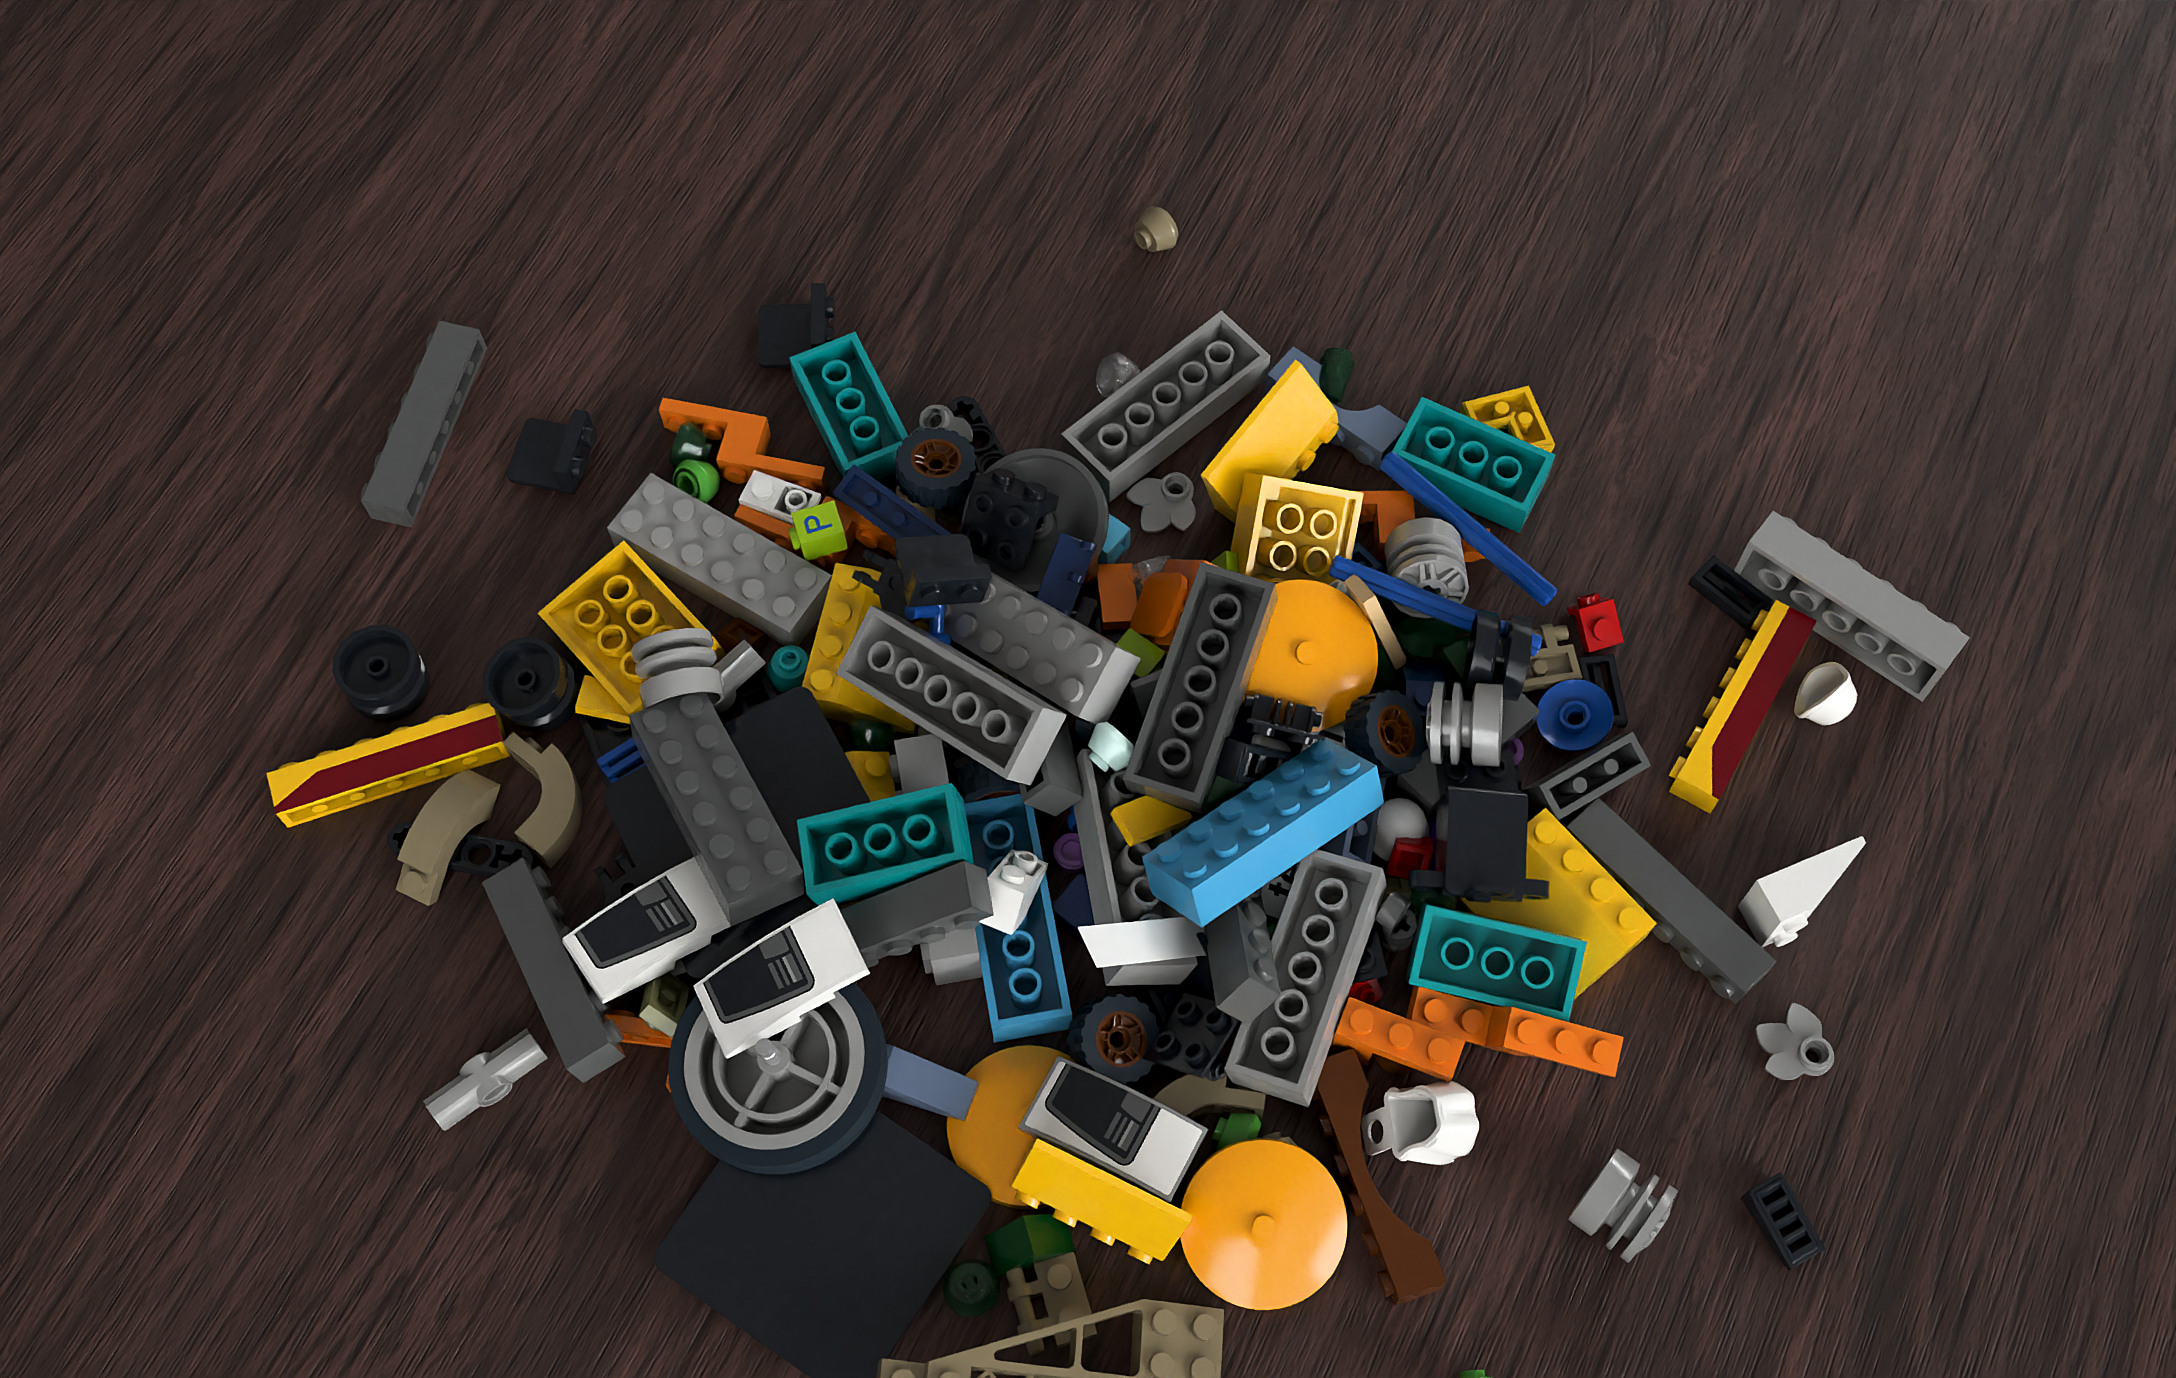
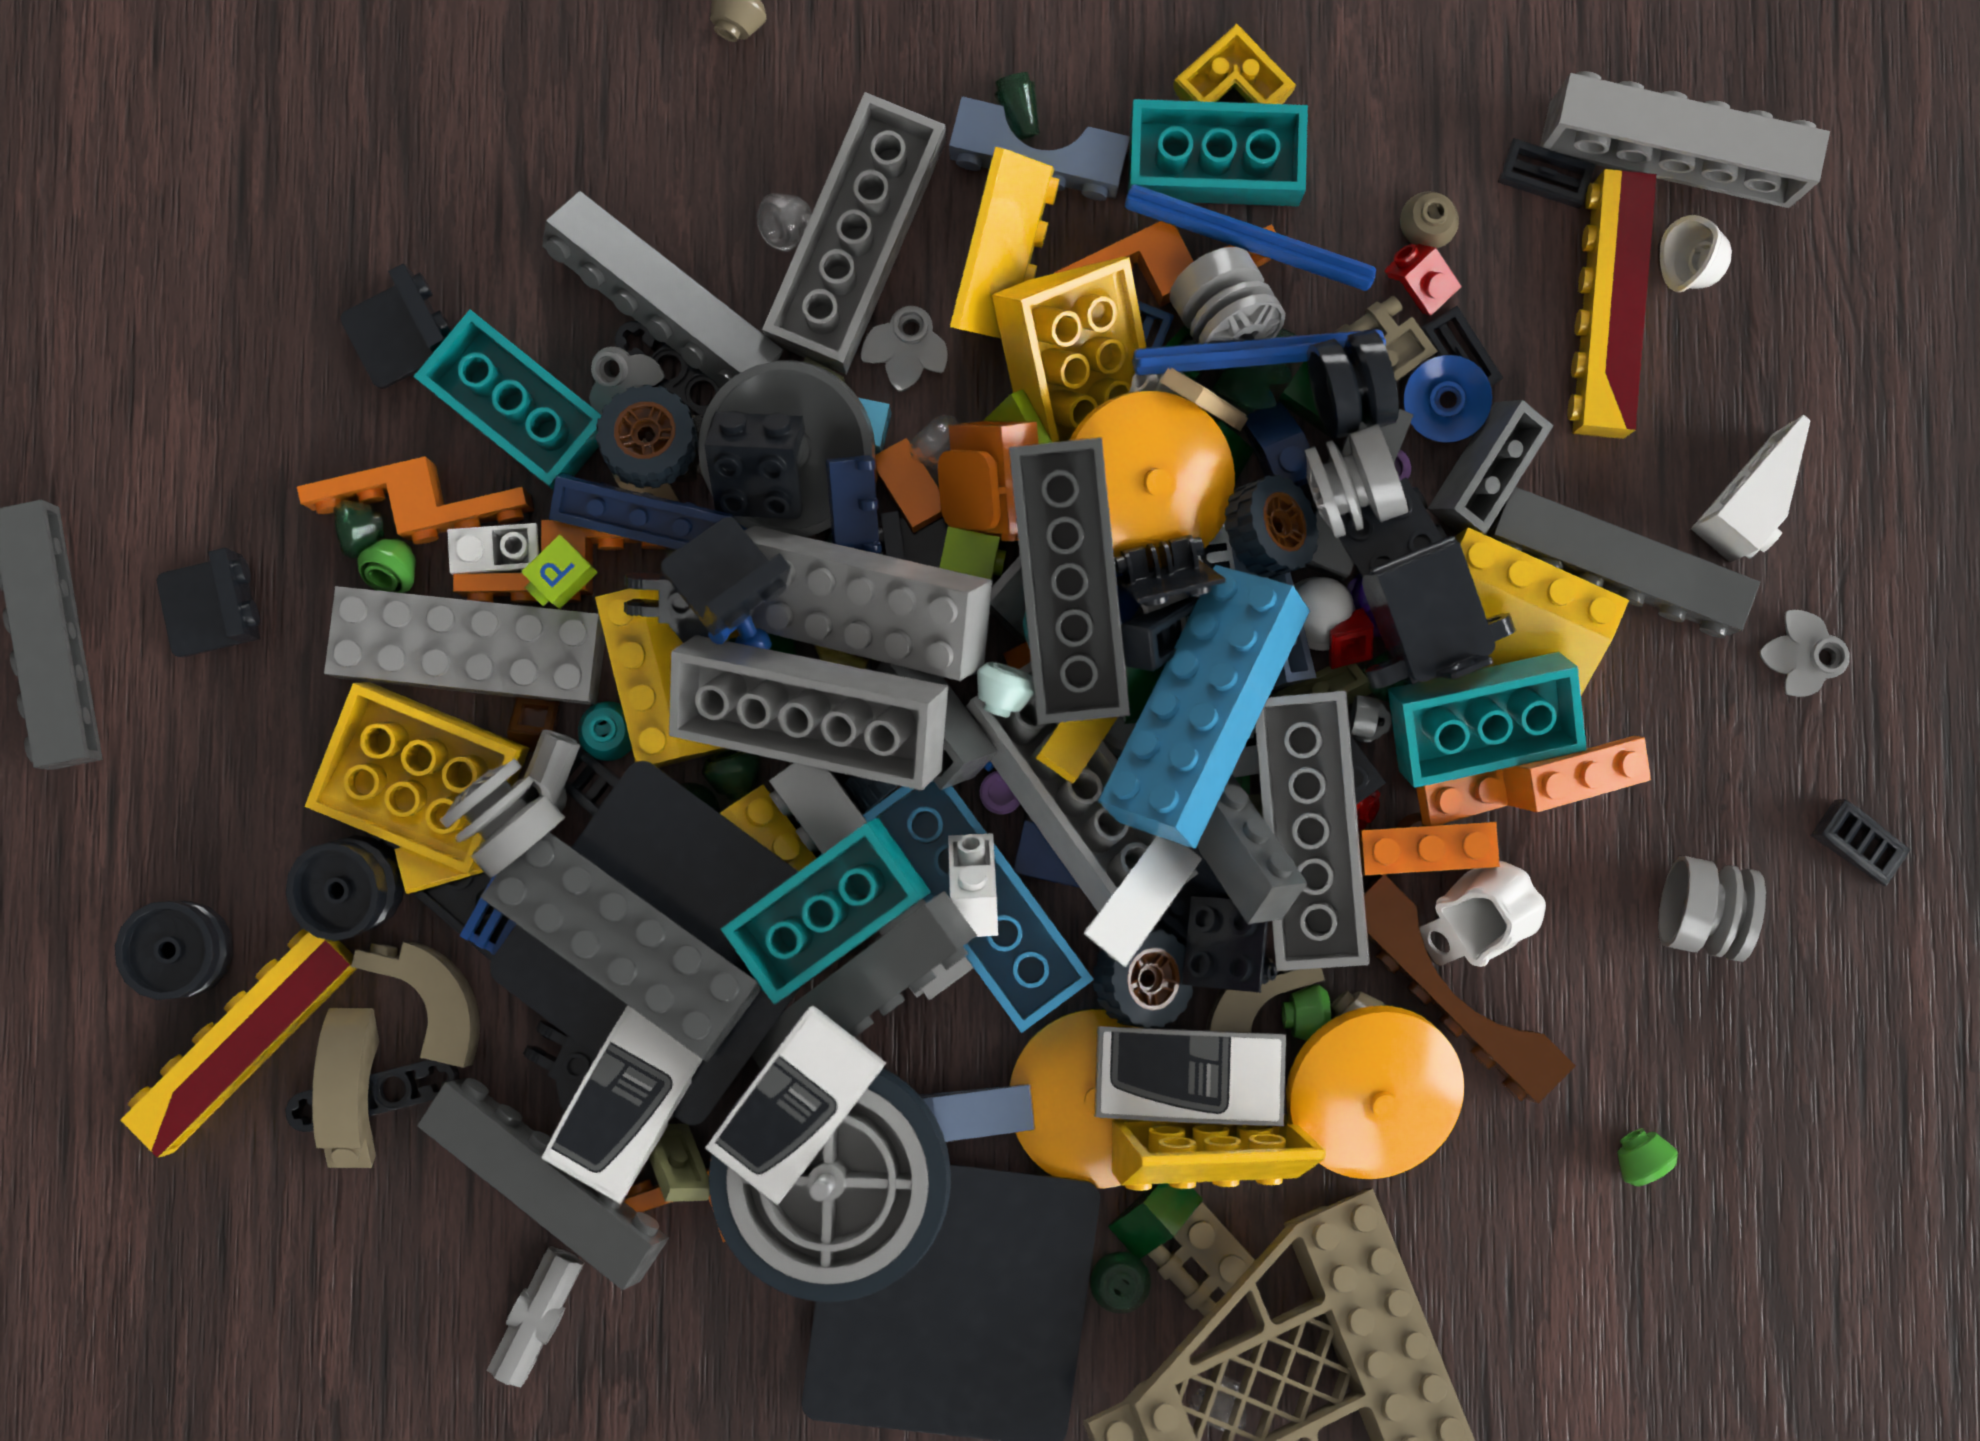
camera: 25 degrees left, 20 degrees up
(993, 376) = (654, 291): none -> brick
(1620, 582) = (1429, 219): none -> dark tan cone

